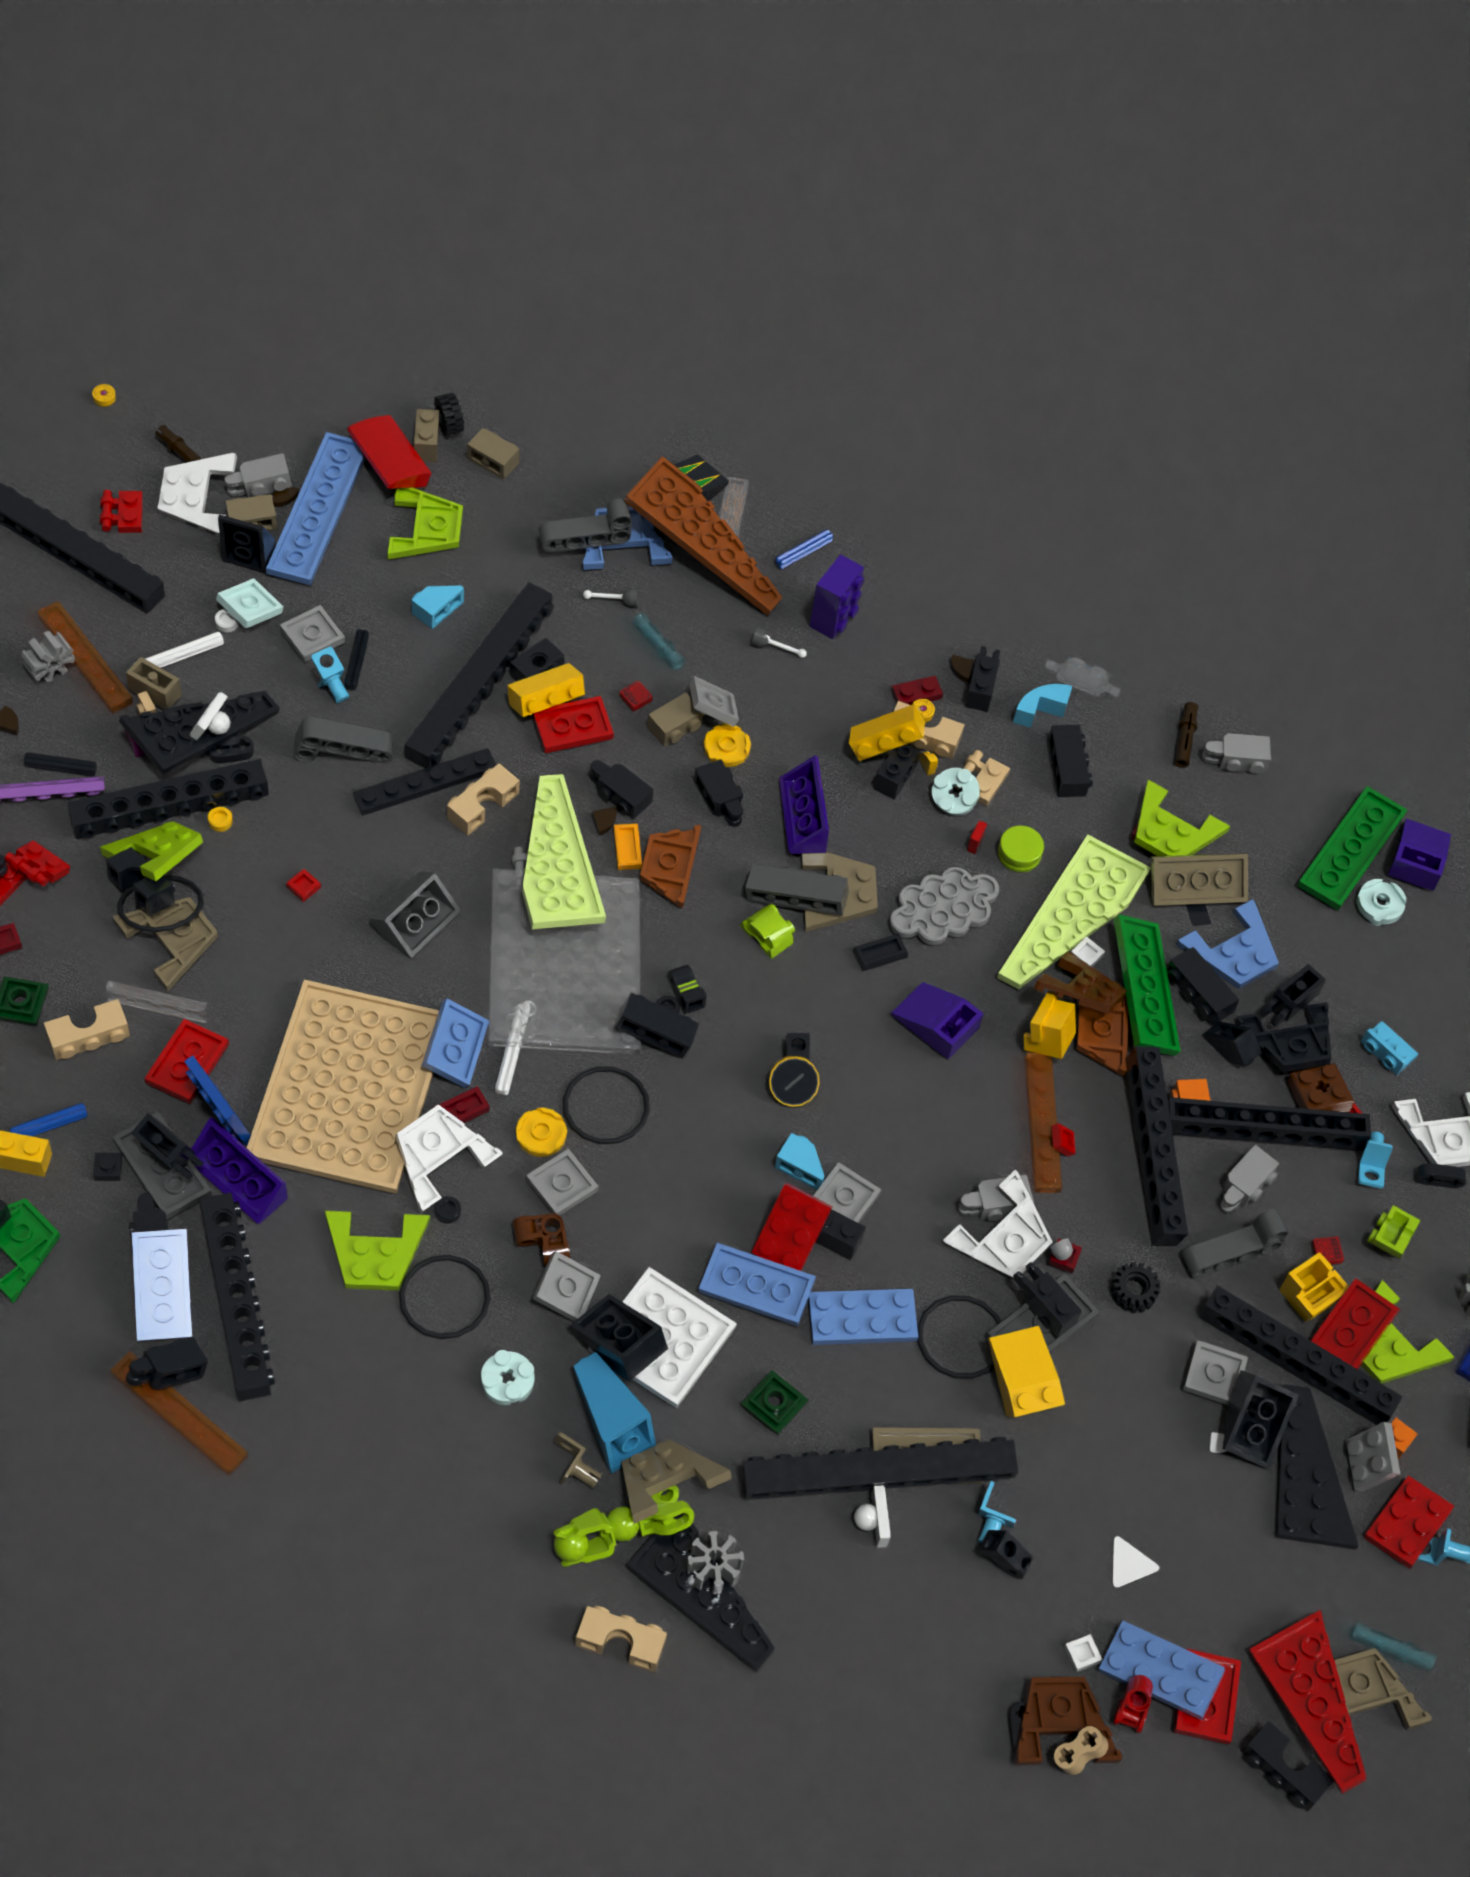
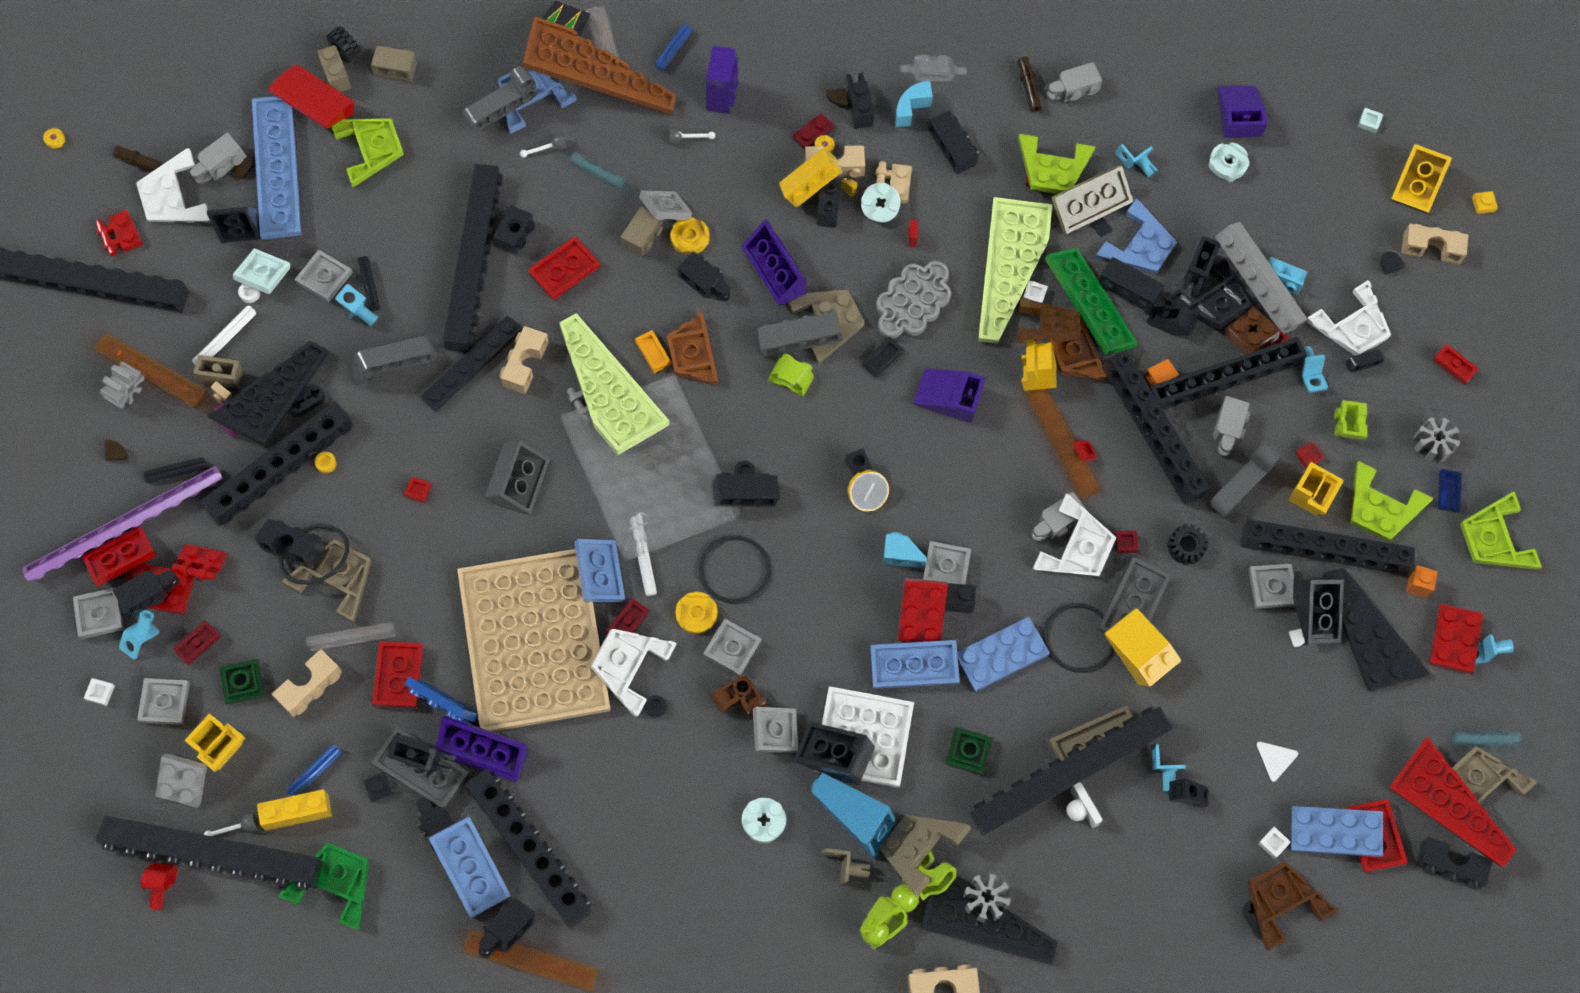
camera: 20 degrees left, 10 degrees up
(162, 844) = (292, 502): lime wing -> none
(213, 719) = (282, 384): white tile -> none
(255, 510) = (226, 193): dark tan brick -> none
(375, 1261) = (617, 772): lime wing -> none
(436, 603) = (409, 210): medium azure slope -> none
(452, 1334) = (690, 810): black piece -> none
(546, 689) = (531, 248): yellow brick -> none
(604, 819) = (625, 337): dark brown tile -> none
(621, 788) = (626, 306): black hinge -> none
(636, 696) = (601, 223): red tile -> none
(687, 989) = (752, 449): black leg -> none
(1020, 848) = (949, 229): lime head -> none
(1048, 1300) = (1133, 584): black hinge -> none
(1062, 1250) = (1125, 539): light grey hinge -> none
(1081, 1750) = (1308, 919): tan axle -> none
(1133, 1707) = (1330, 866): red piece -> none
(1277, 860) = (1141, 160): none -> medium azure bracket
(1352, 848) = (1190, 126): green plate -> none
(1355, 1324) = (1358, 506): red plate -> none
(1356, 1036) = (1261, 277): none -> light grey brick
(1373, 1457) = (1413, 602): light grey plate -> none

